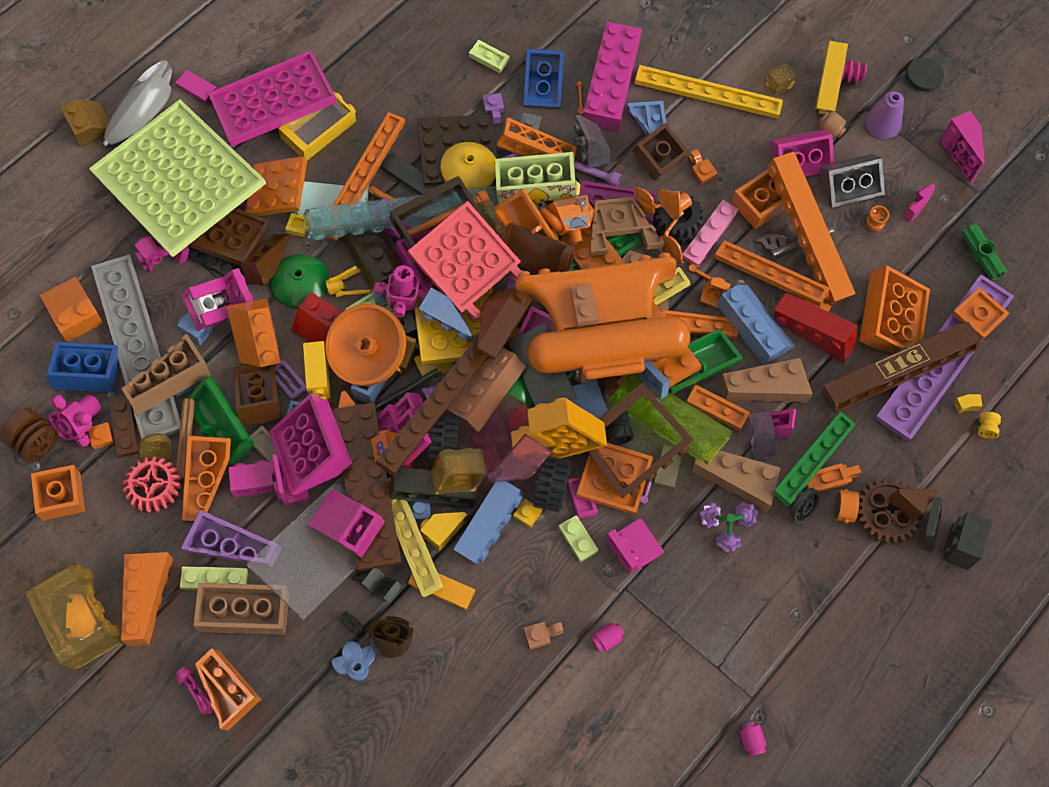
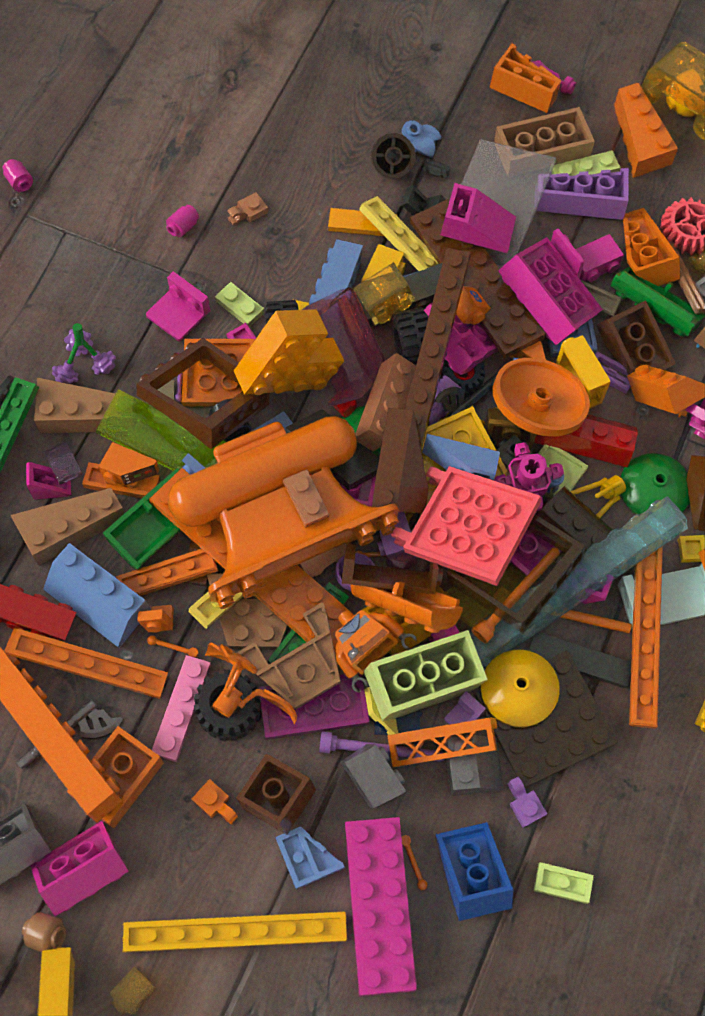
camera: 165 degrees right, 0 degrees up
(713, 405) = (126, 465): none -> orange slope

